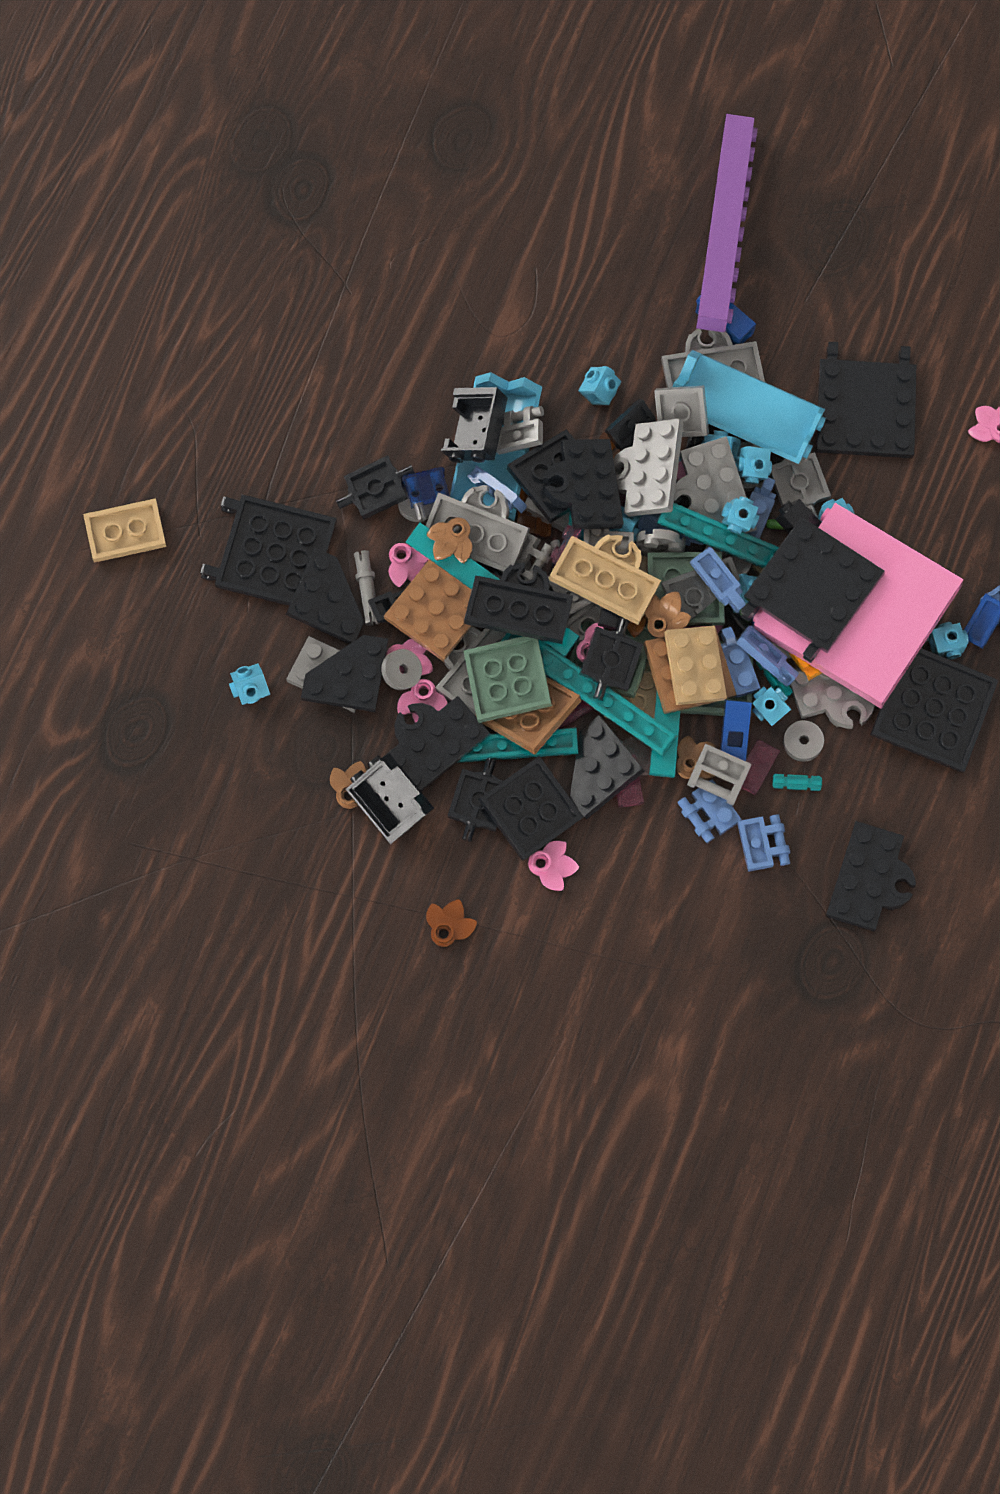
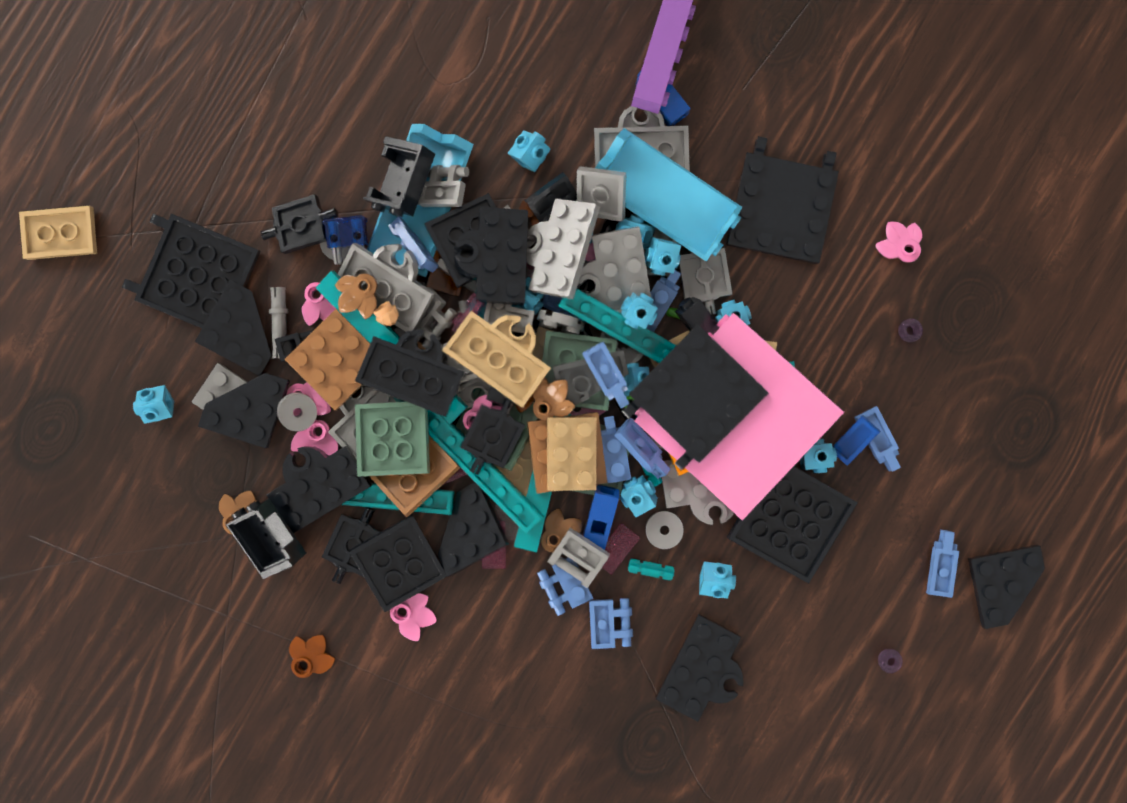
camera: 10 degrees right, 15 degrees up
(484, 554) = (386, 314): none -> light nougat plate
(867, 779) = (716, 580): none -> medium azure brick

